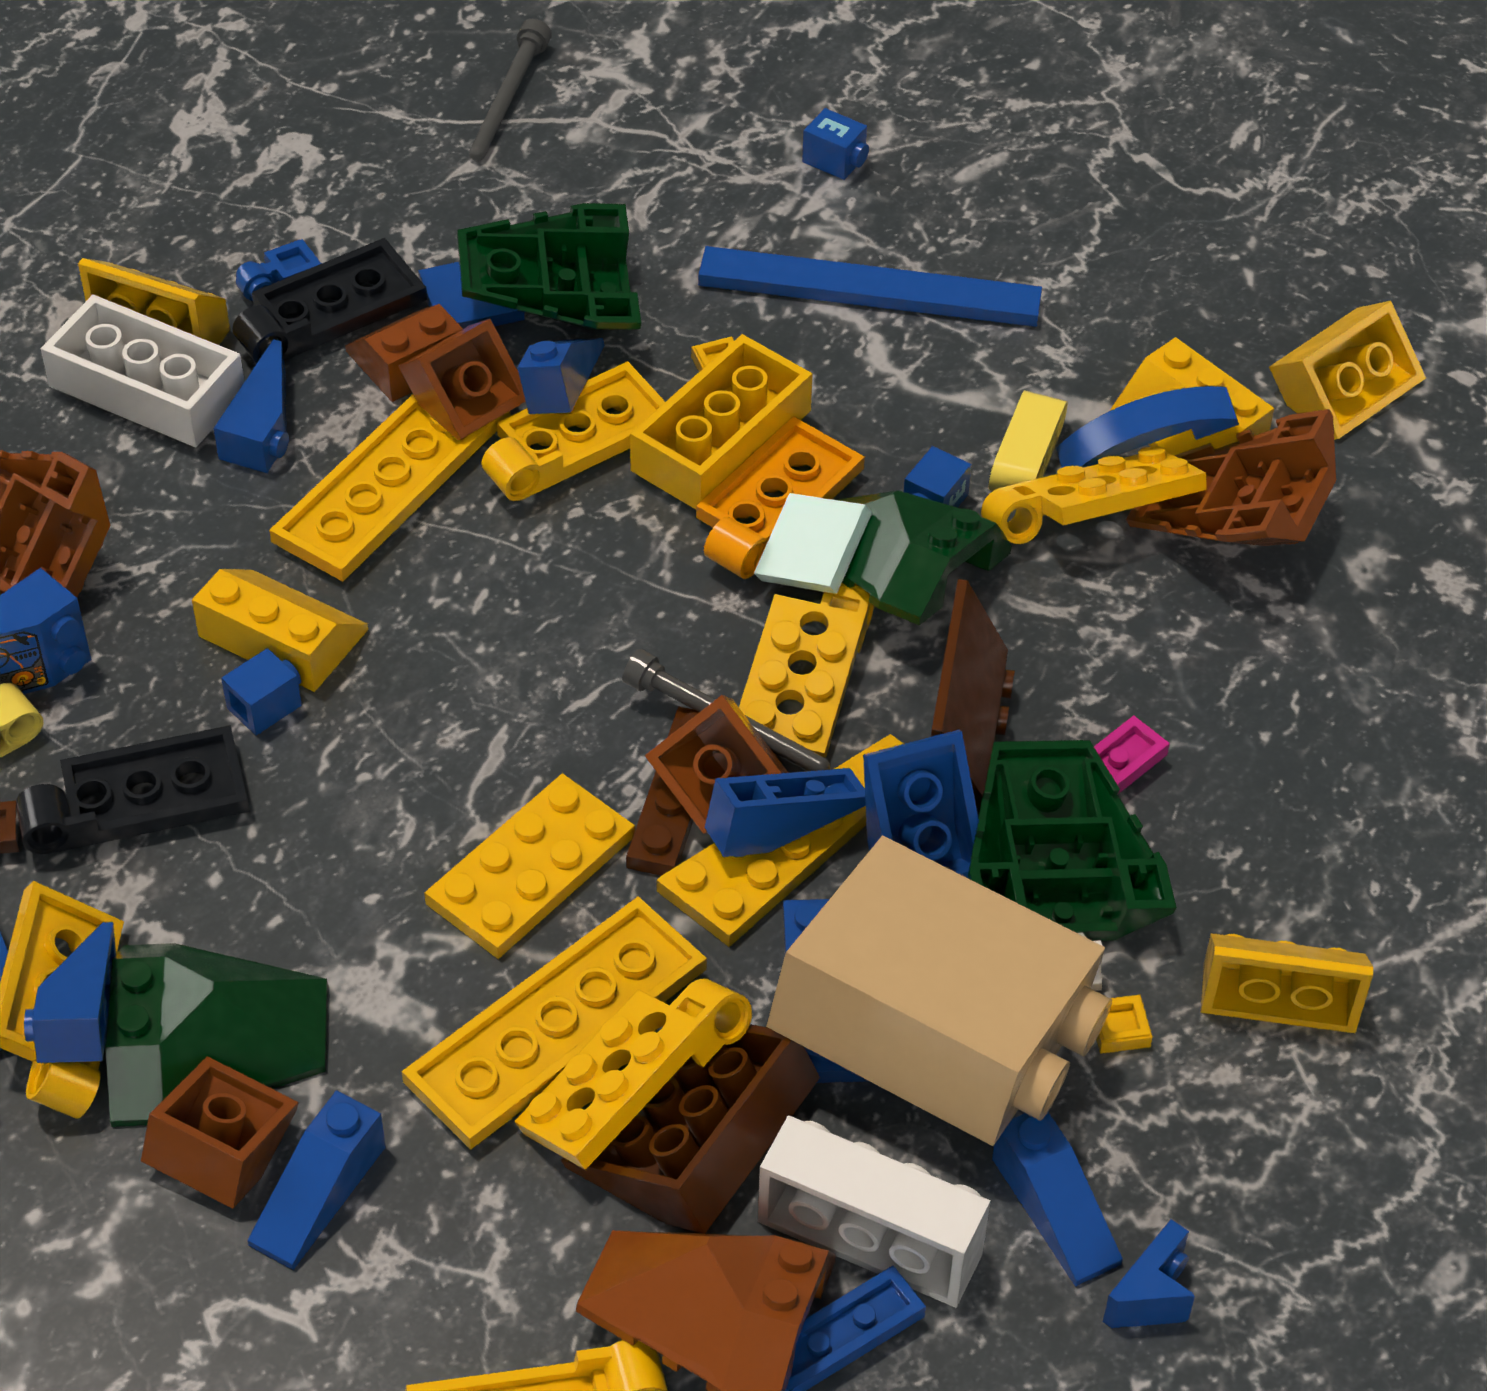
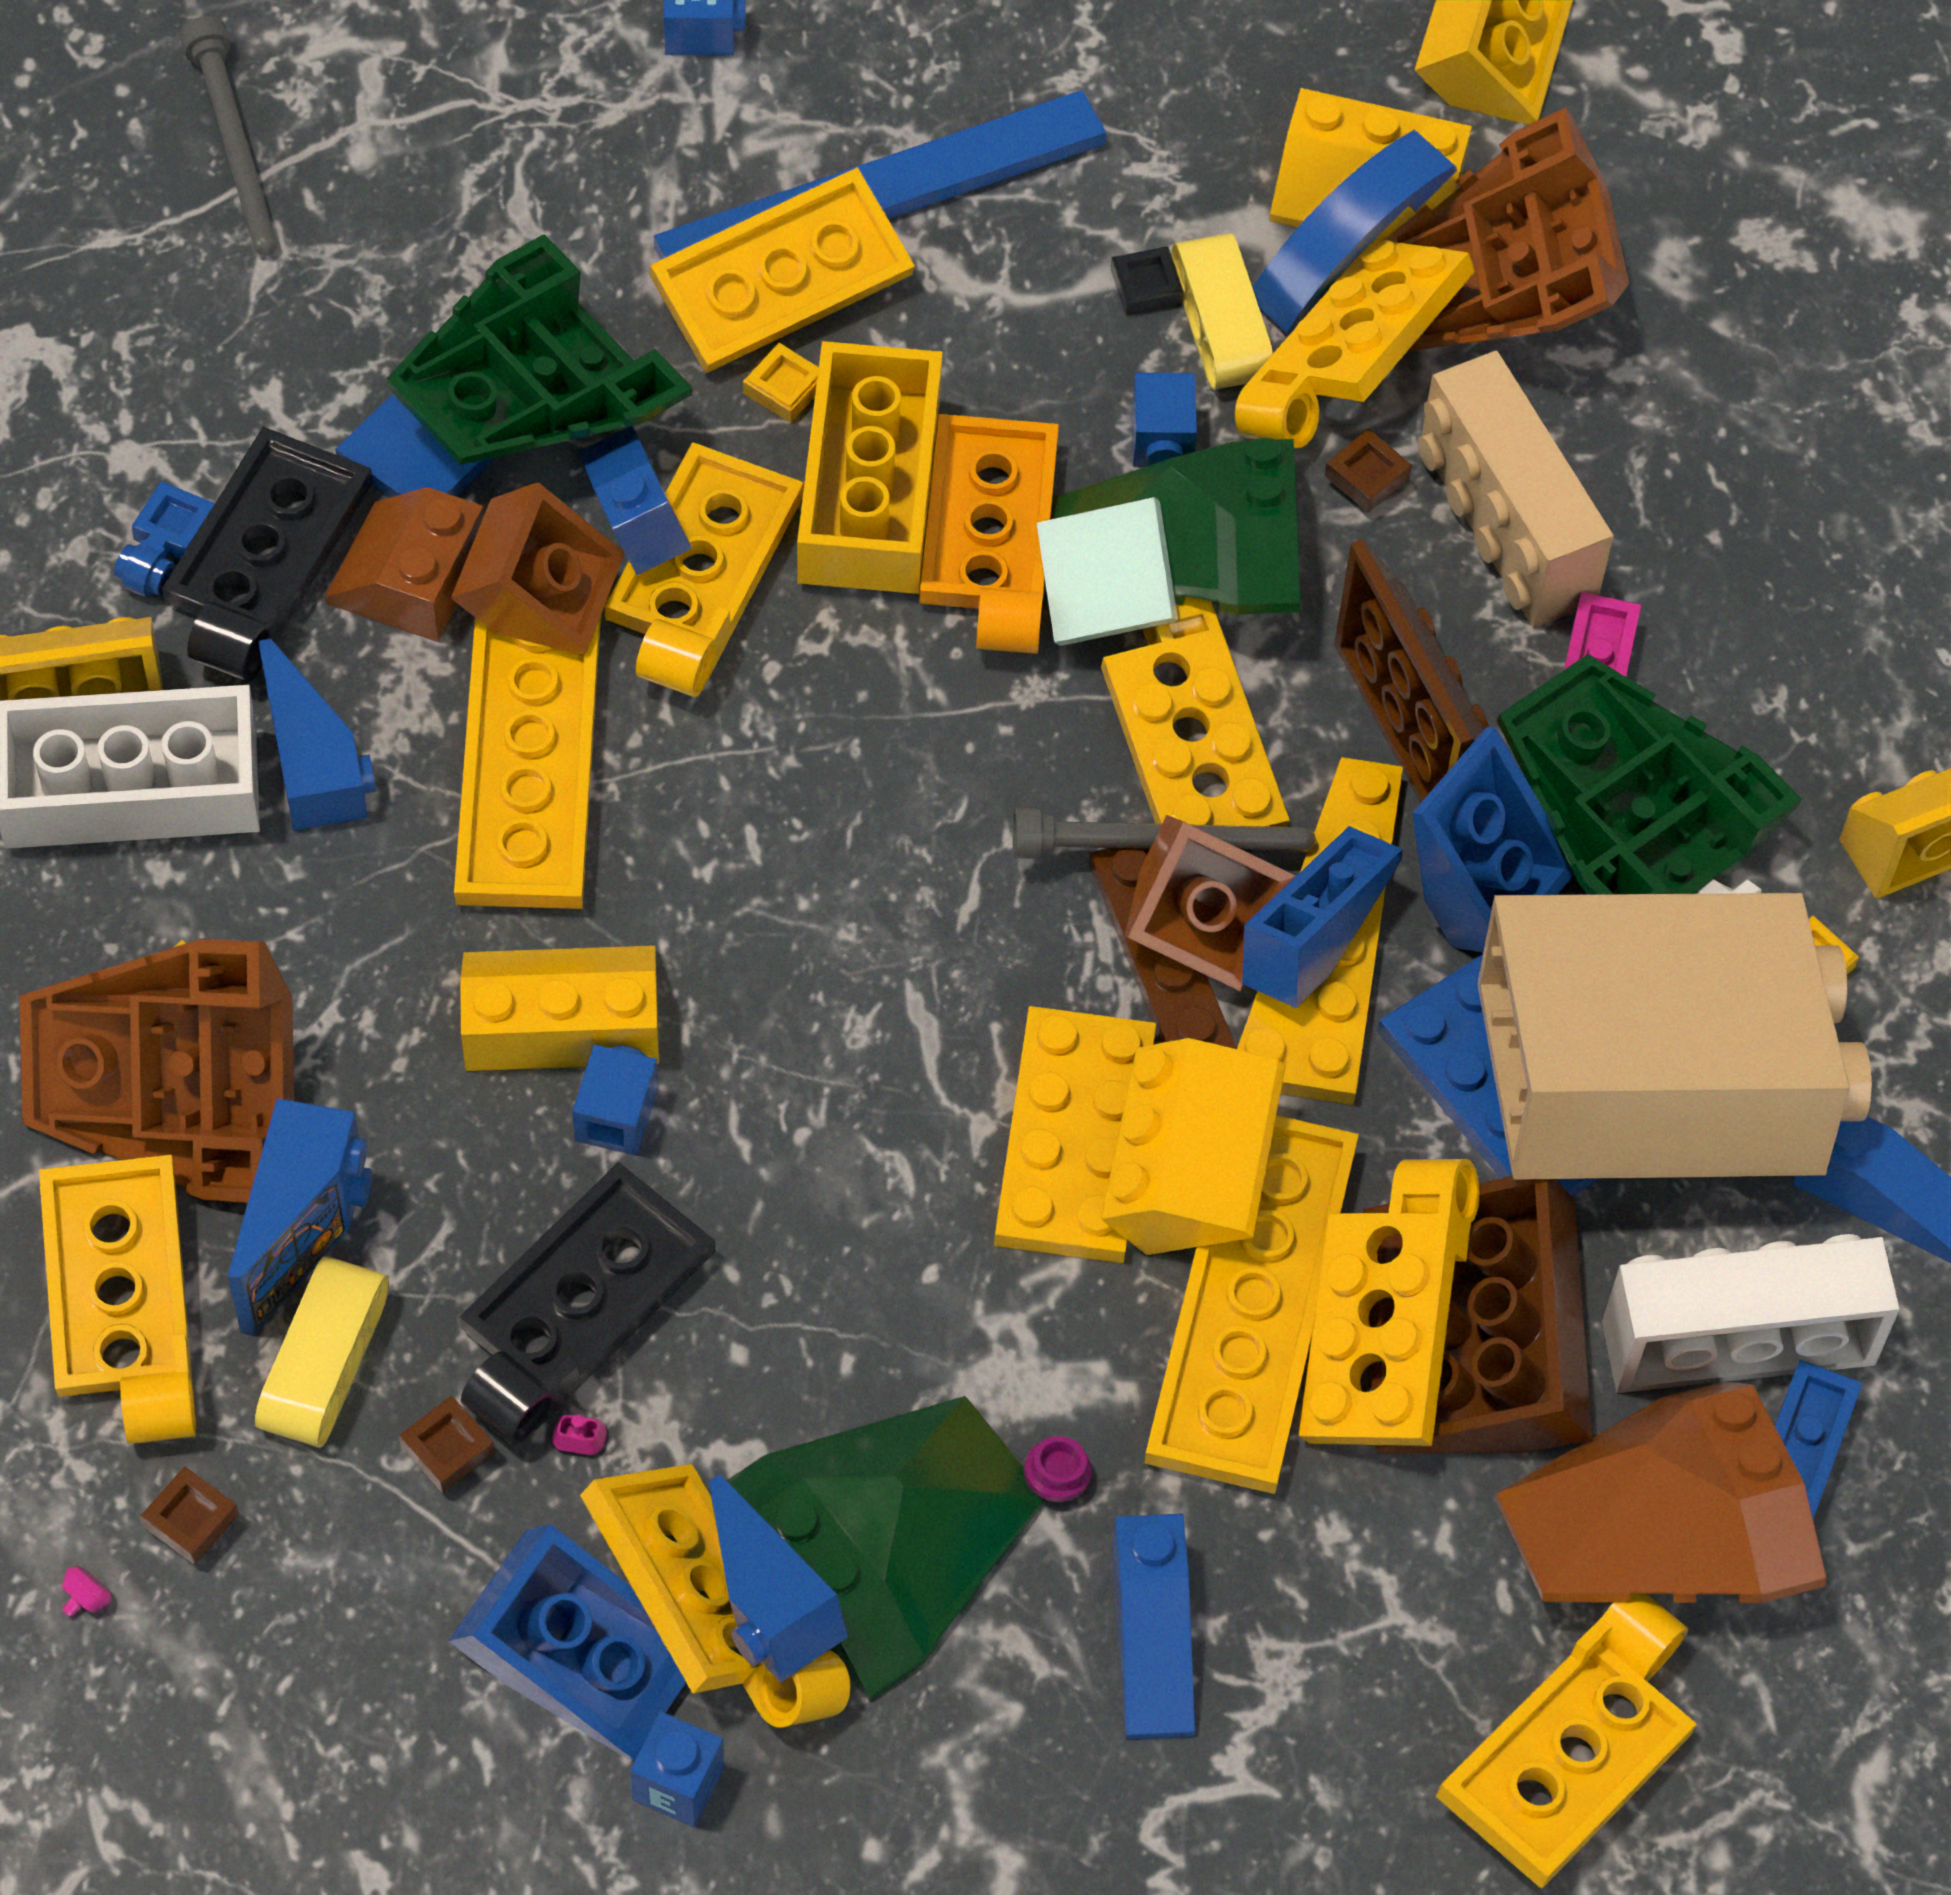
camera: 35 degrees left, 10 degrees up
(77, 869) = (579, 1434): none -> dark pink rock
(217, 1131) = (1013, 1637): dark orange slope -> none
(342, 1052) = (1057, 1469): none -> magenta plate
(581, 899) = (1192, 1145): none -> yellow slope
(763, 295) = (781, 270): none -> yellow plate
(994, 409) = (1147, 281): none -> black tile
(1050, 579) = (1368, 470): none -> reddish brown plate
(1128, 626) = (1514, 489): none -> tan brick

